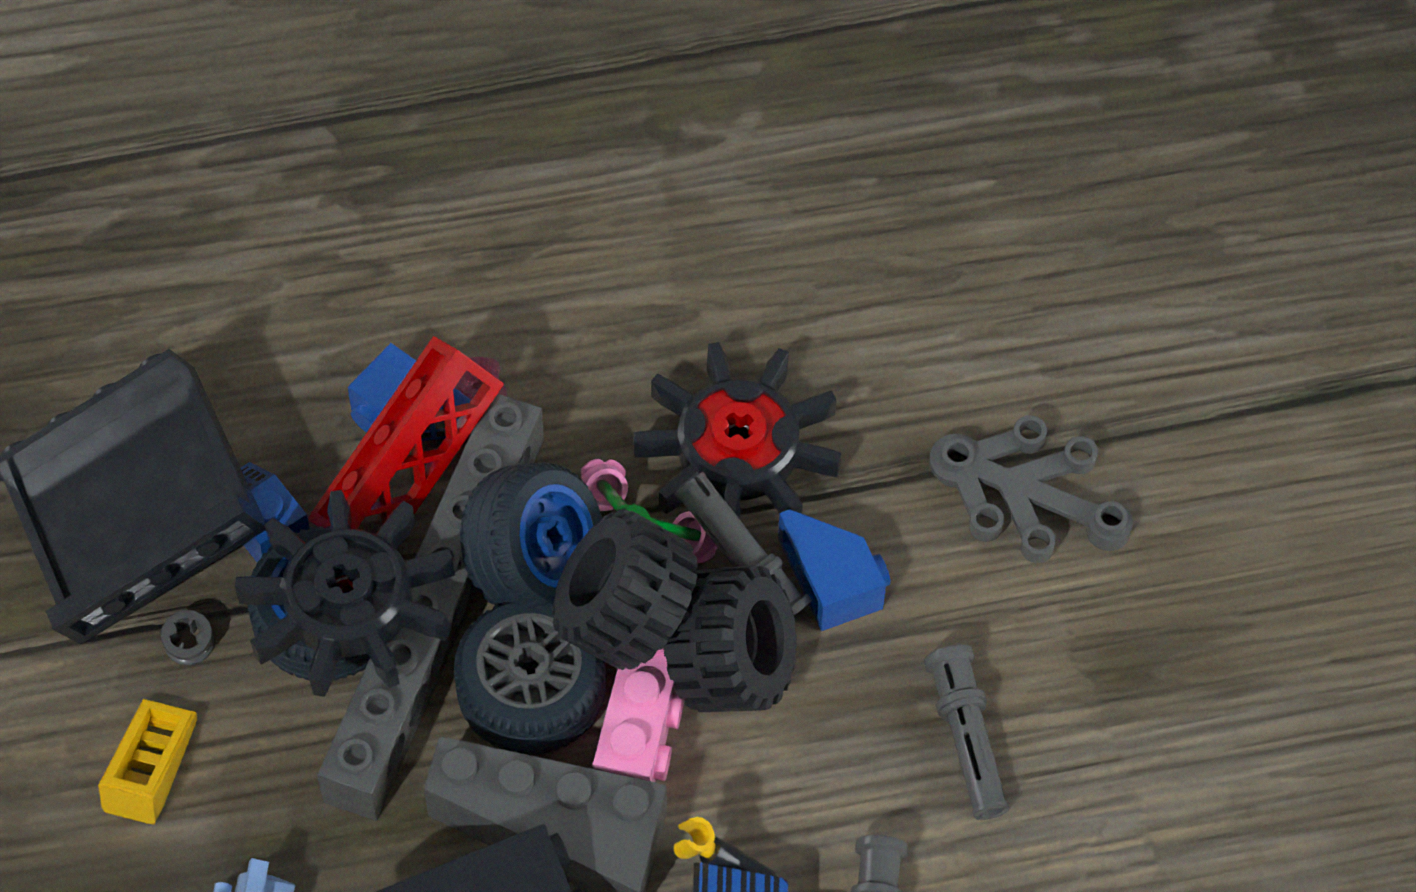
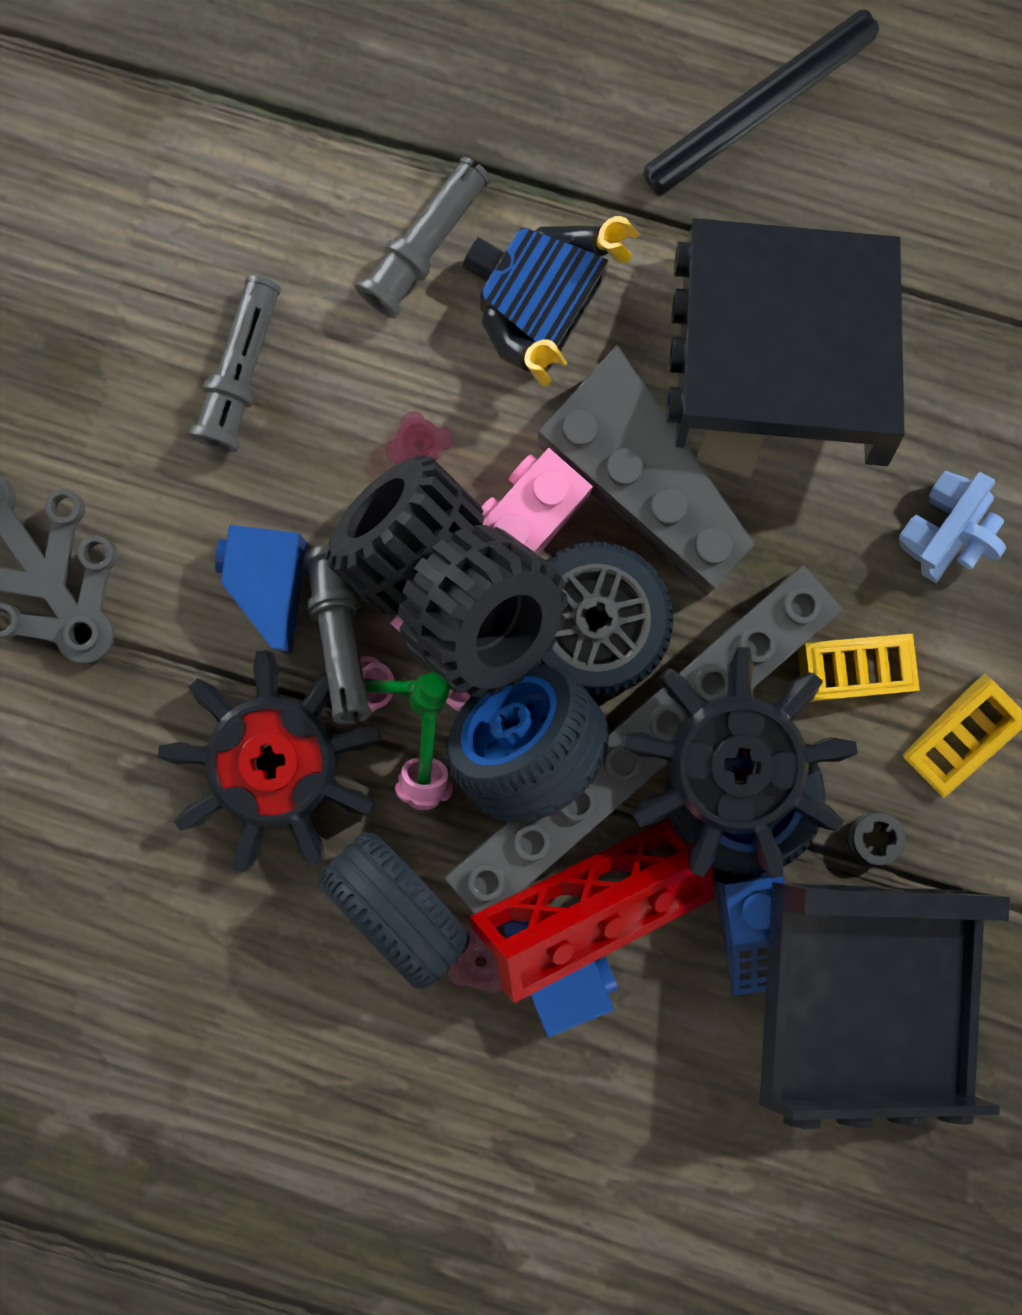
camera: 150 degrees left, 25 degrees up
(285, 780) = (811, 660): none -> yellow slope
(569, 366) = (394, 910): none -> black wheel
(768, 735) = (416, 428): none -> clear pink plate

